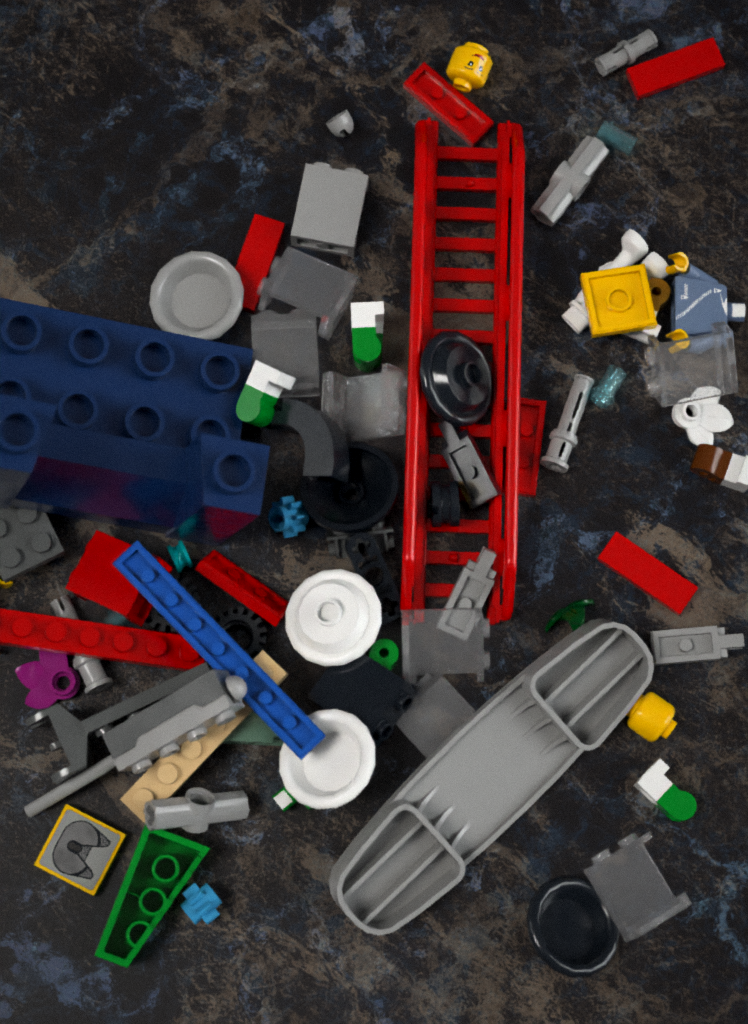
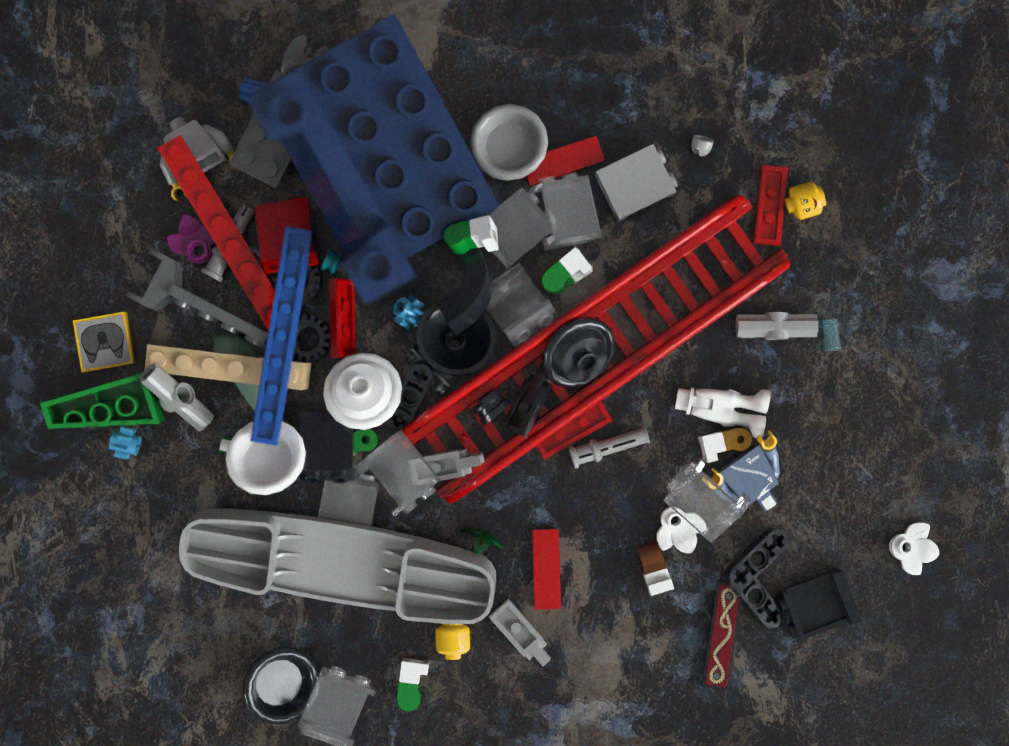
camera: 55 degrees right, 10 degrees up
(159, 730) = (203, 338): piece -> none
(604, 393) = (652, 454): clear light blue pin -> none
(618, 300) = (713, 419): yellow tile -> none
(626, 52) = (897, 297): light grey pin -> none
(675, 68) = (911, 338): red tile -> none

